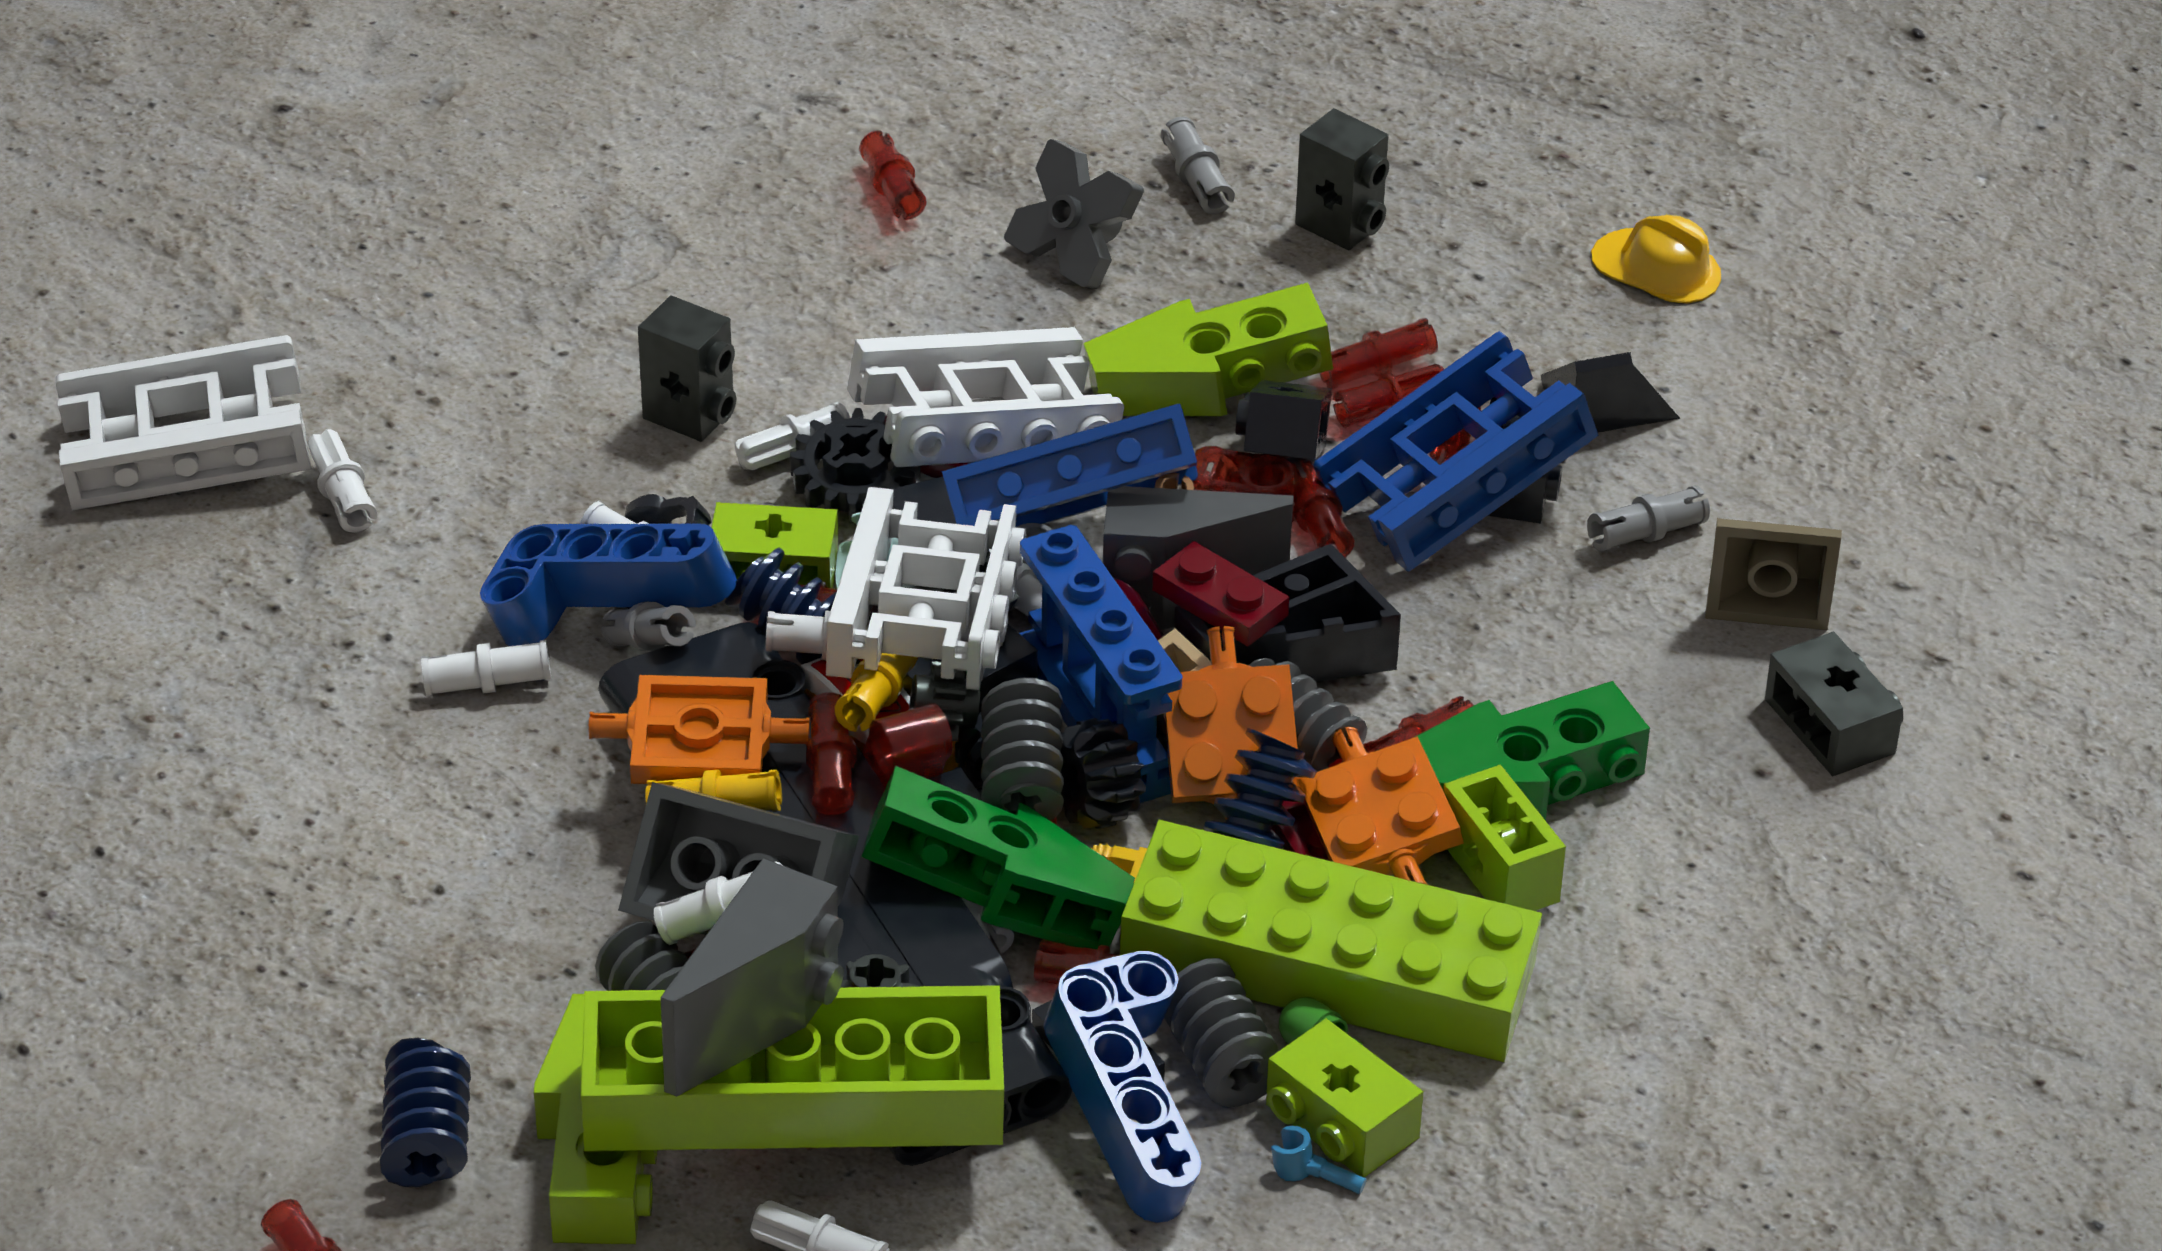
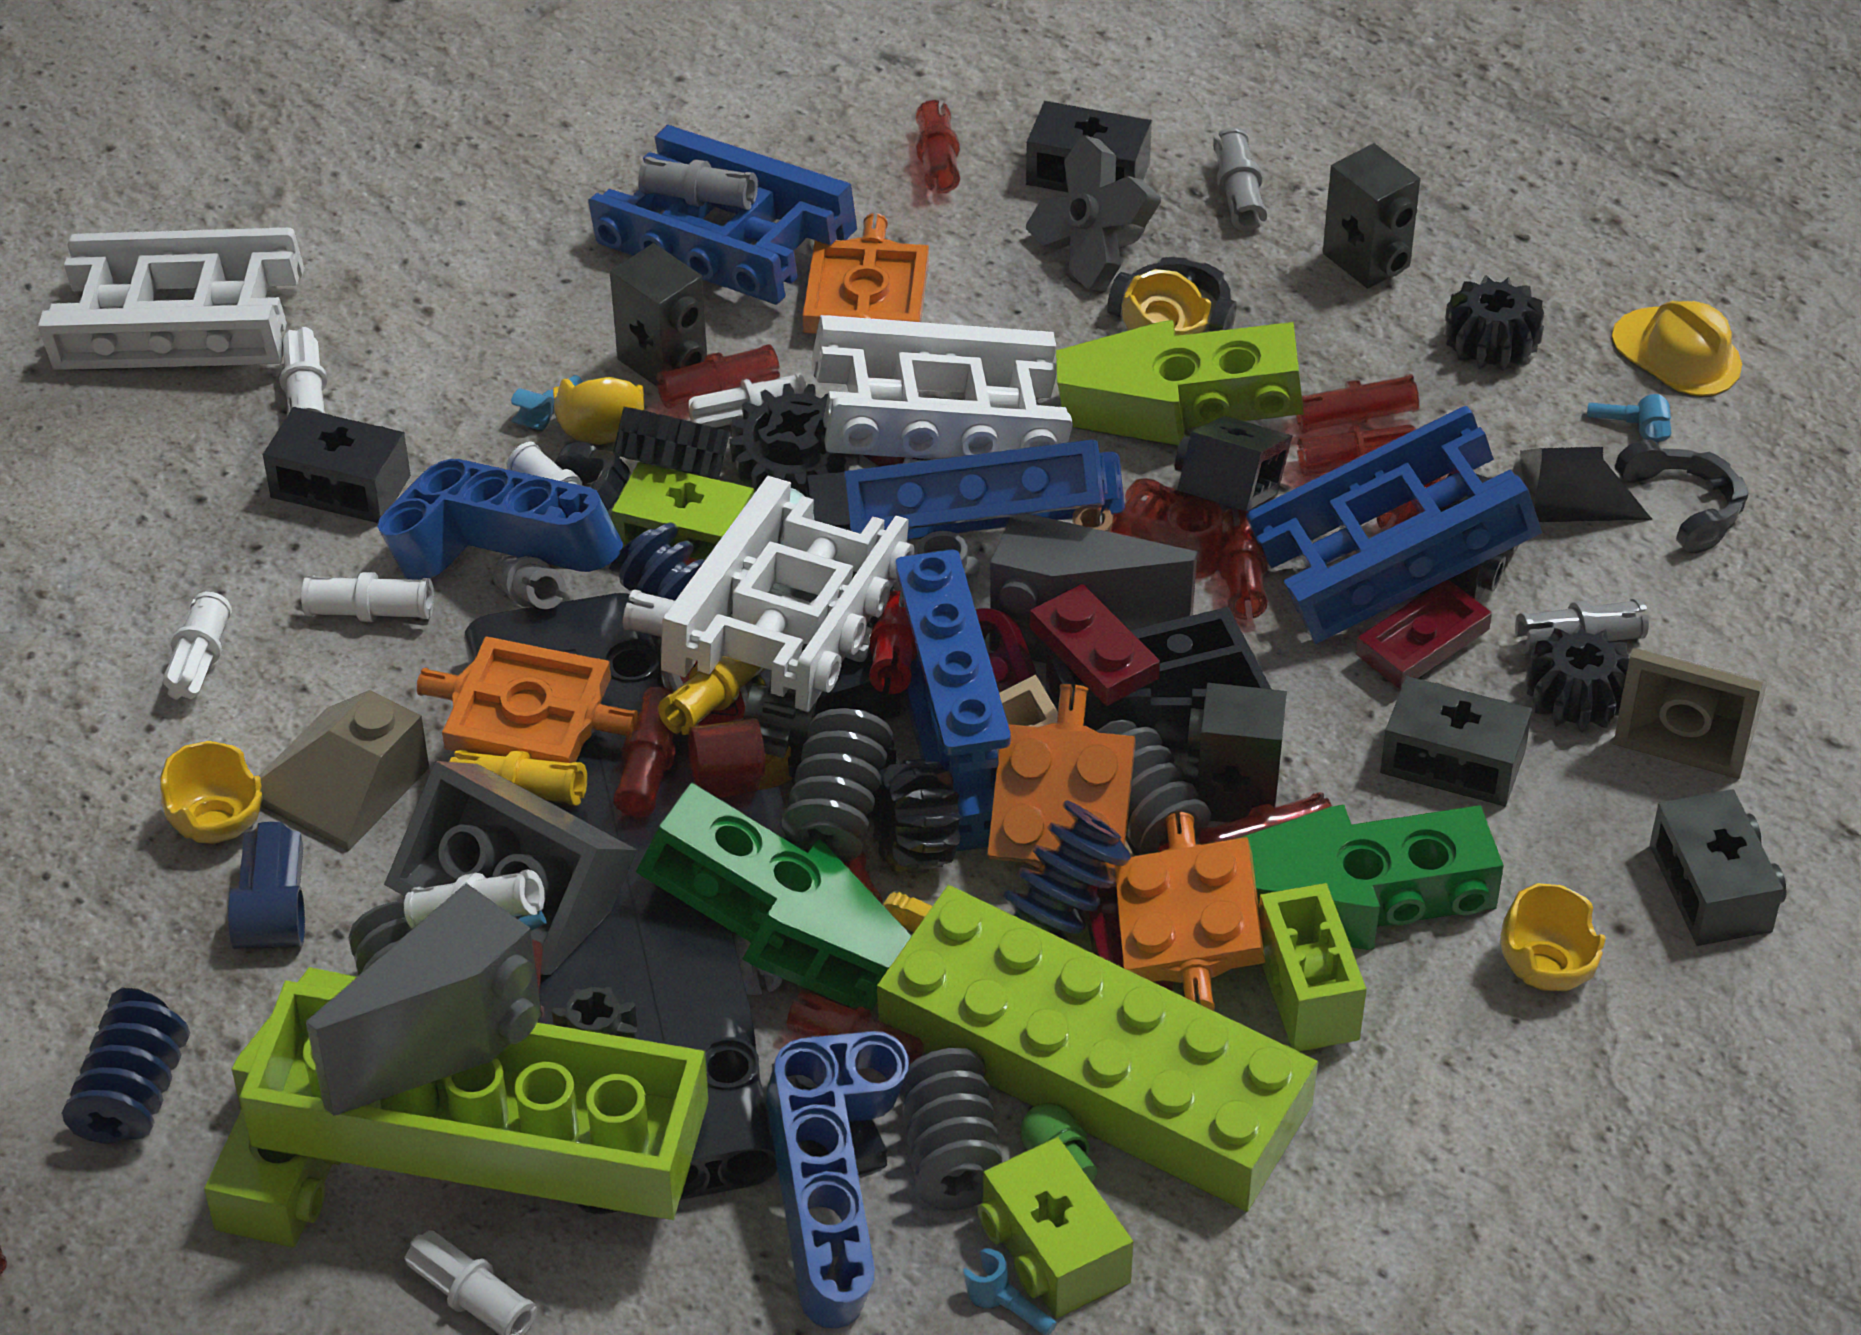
camera: 15 degrees right, 5 degrees up
(333, 736) = (196, 645): none -> white axle
(405, 863) = (209, 792): none -> yellow hair
(409, 552) = (336, 464): none -> black brick
(496, 947) = (269, 899): none -> dark blue piece
(524, 821) = (347, 768): none -> dark tan slope
(583, 473) = (534, 407): none -> dark azure hand
(653, 462) = (595, 407): none -> yellow hair
(681, 237) = (698, 183): none -> light grey pin
(740, 478) = (671, 443): none -> black tyre
(753, 415) = (717, 375): none -> clear red pin
(756, 245) = (800, 198): none -> blue fence
(865, 305) = (866, 278): none -> orange plate
(1016, 148) = (1060, 127): none -> black brick
(1032, 626) = (892, 647): none -> red pin
(1165, 281) = (1165, 297): none -> yellow hair
(1175, 259) = (1202, 275): none -> black piece
(1379, 664) = (1238, 749): none -> pearl dark grey brick
(1483, 262) = (1494, 323): none -> black gear
(1506, 547) = (1423, 633): none -> dark red plate
(1567, 633) = (1455, 741): none -> pearl dark grey brick
(1652, 322) = (1651, 415): none -> dark azure hand
(1662, 562) = (1578, 677): none -> black gear
(1706, 785) = (1551, 938): none -> yellow hair
(1732, 417) = (1703, 529): none -> black piece

